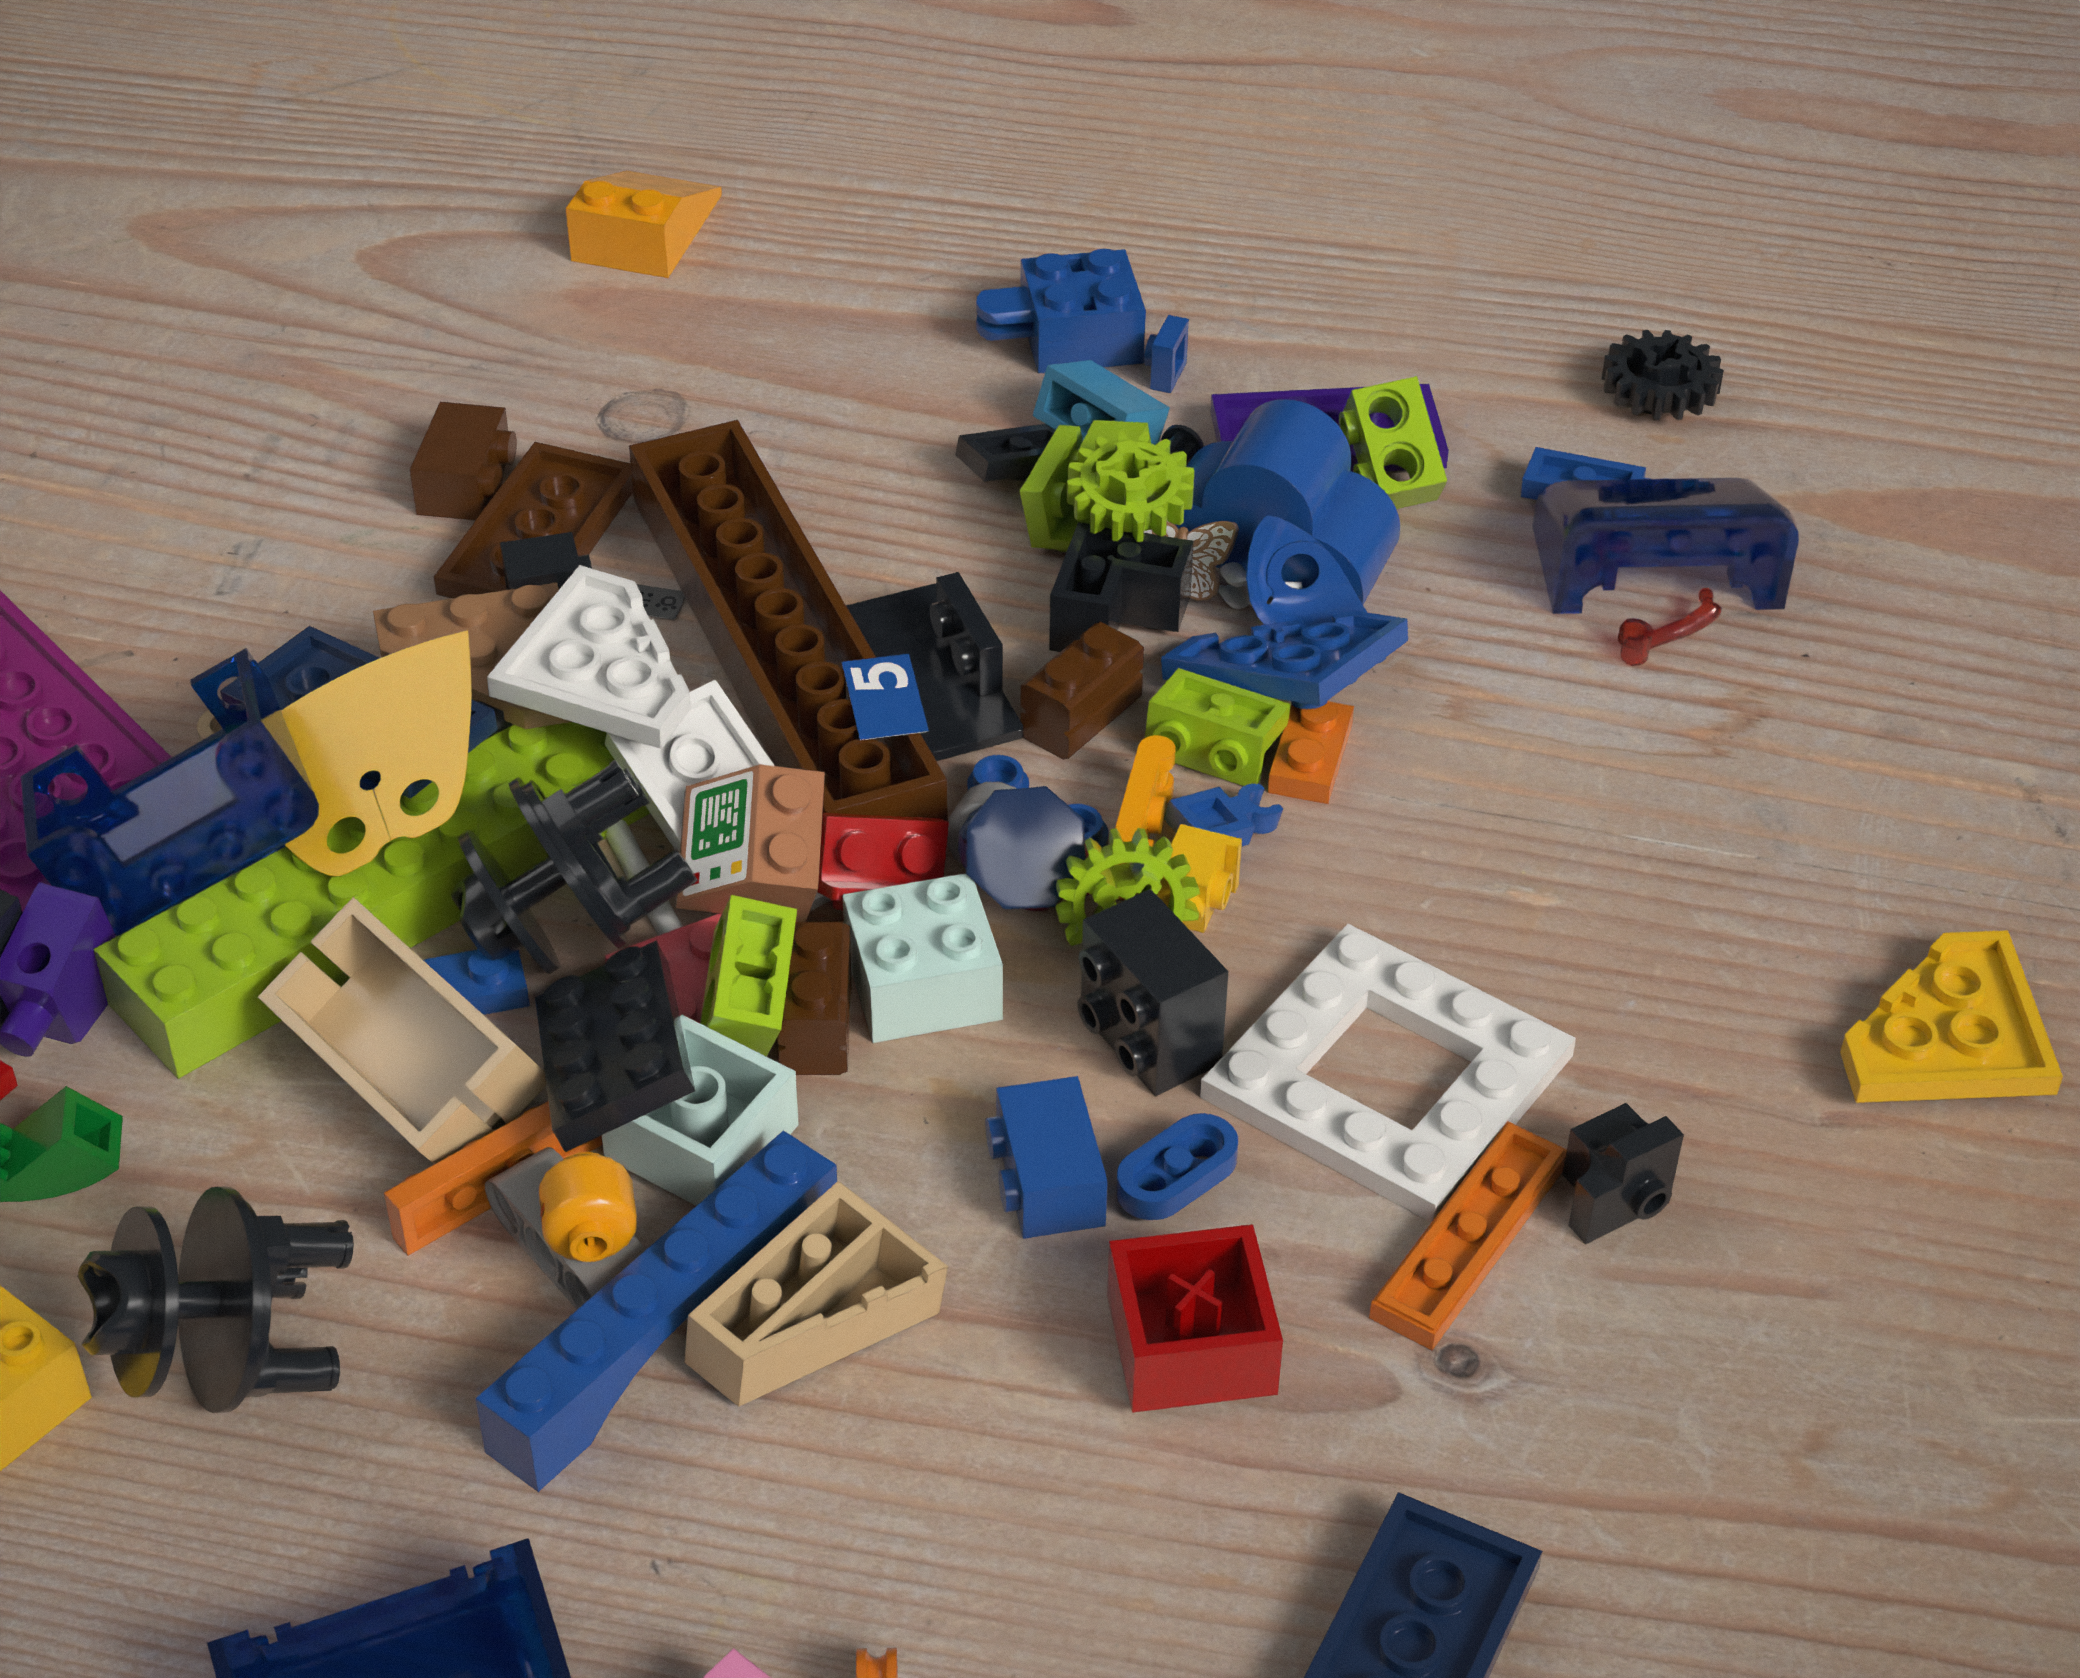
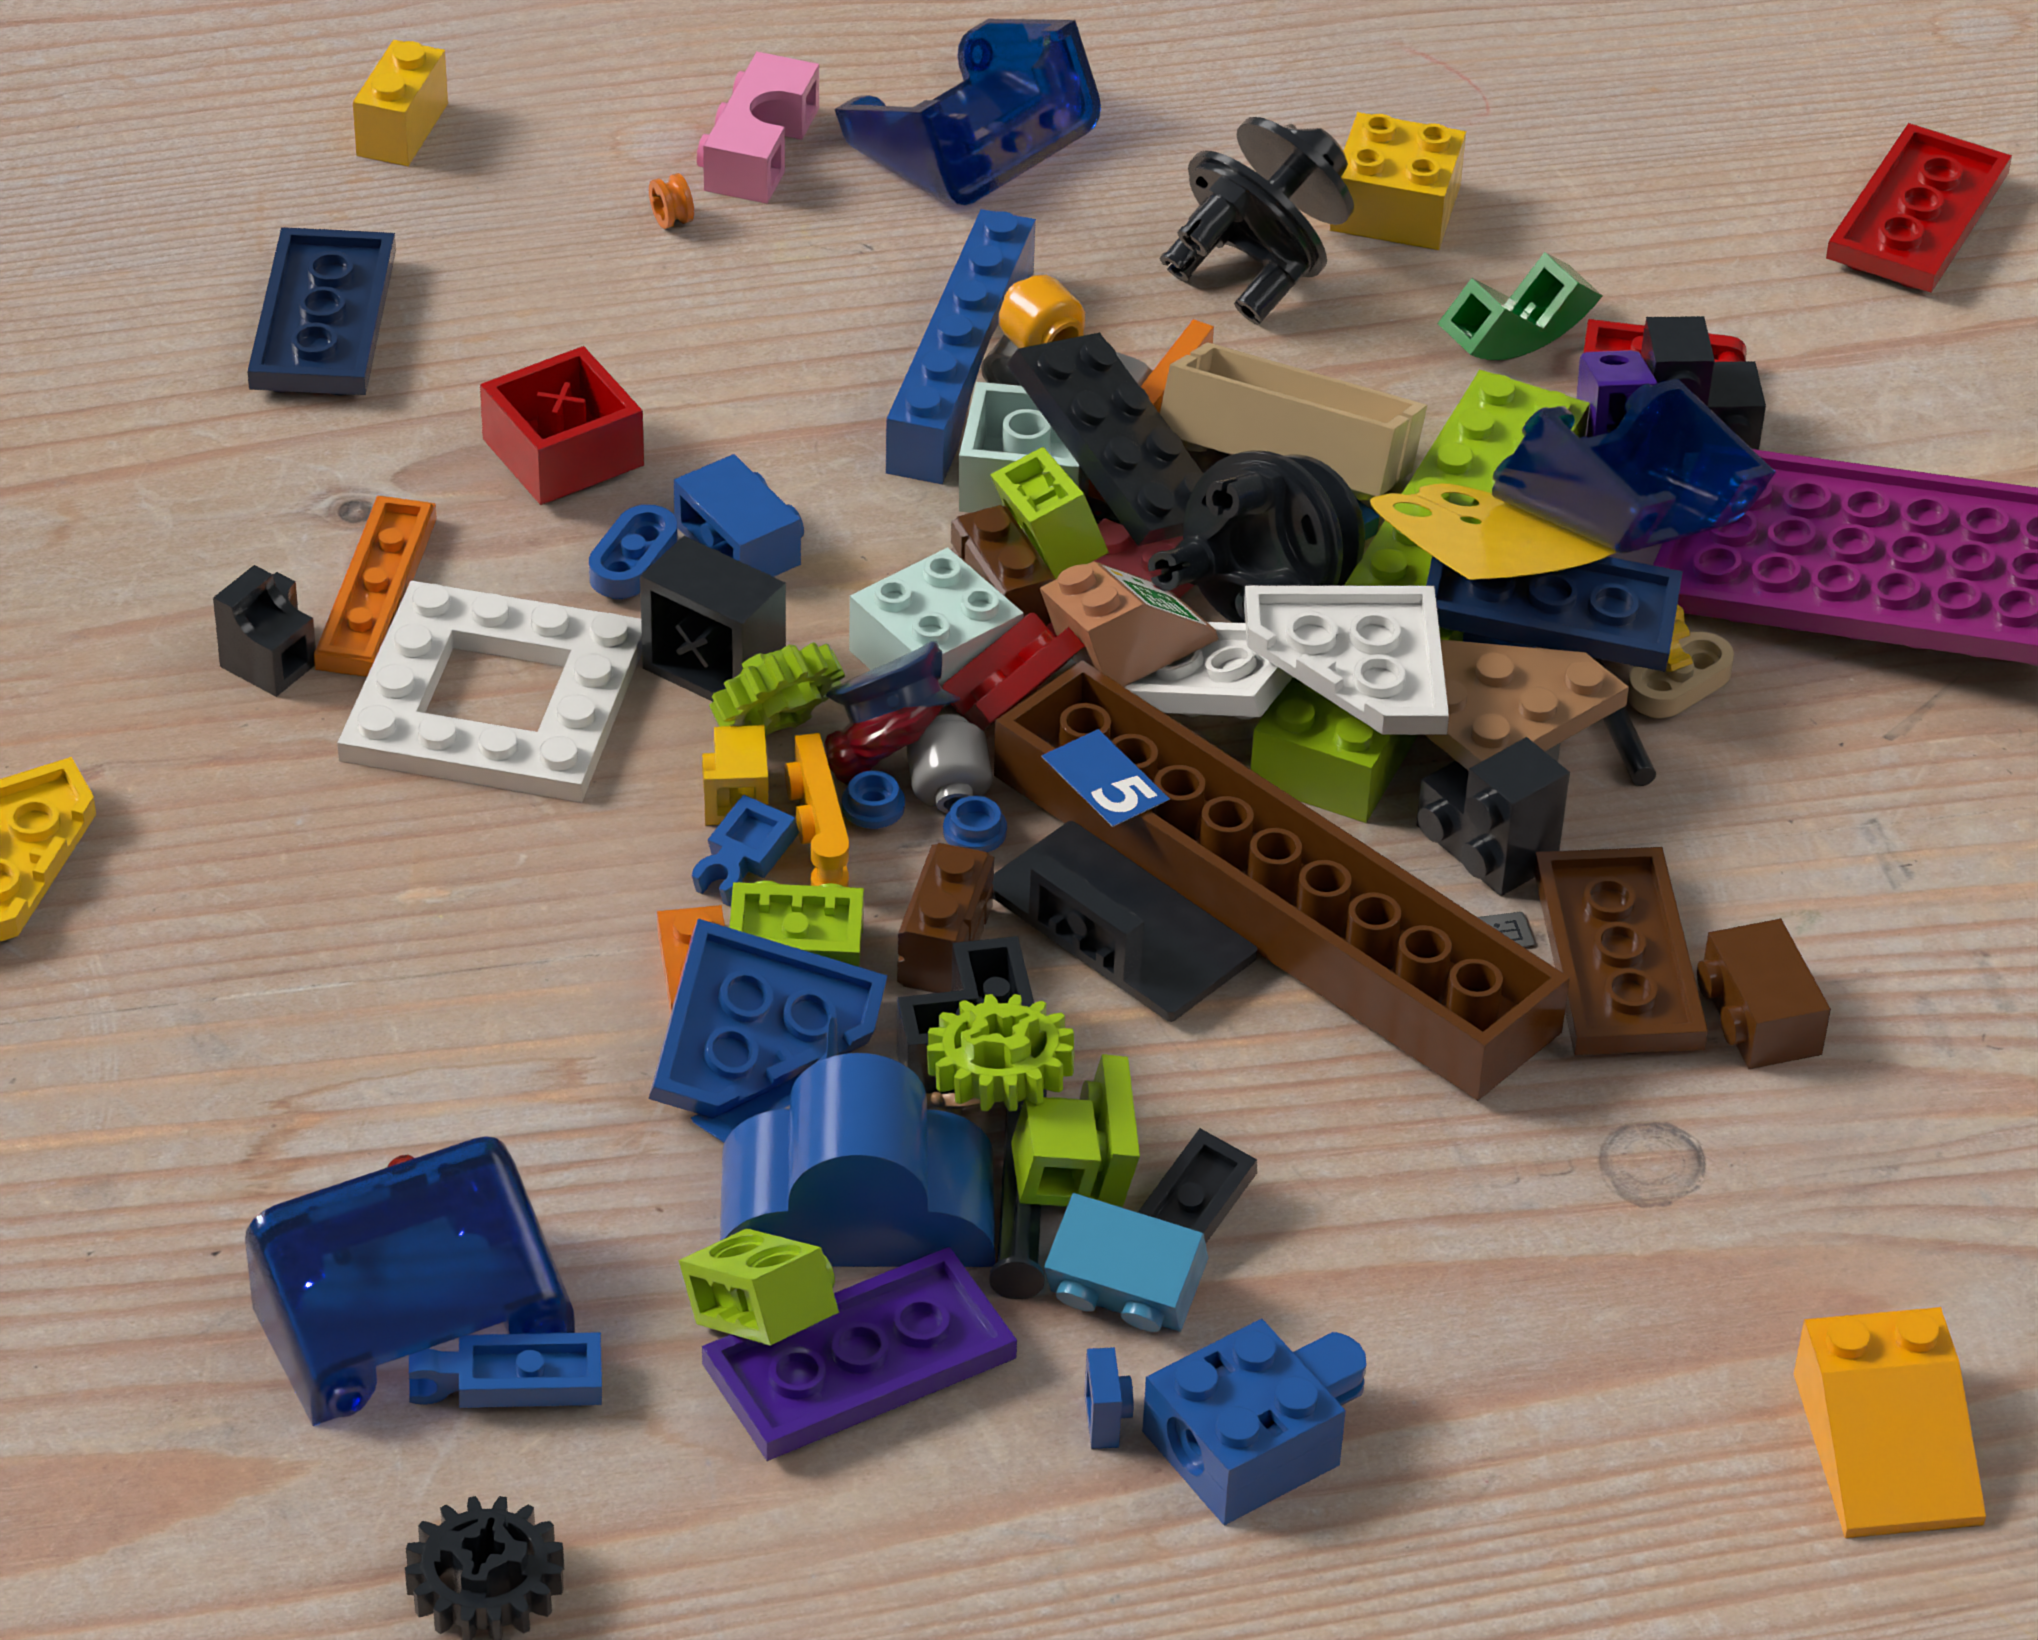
camera: 155 degrees right, 0 degrees up
(812, 1298) = (851, 368): tan wedge -> none

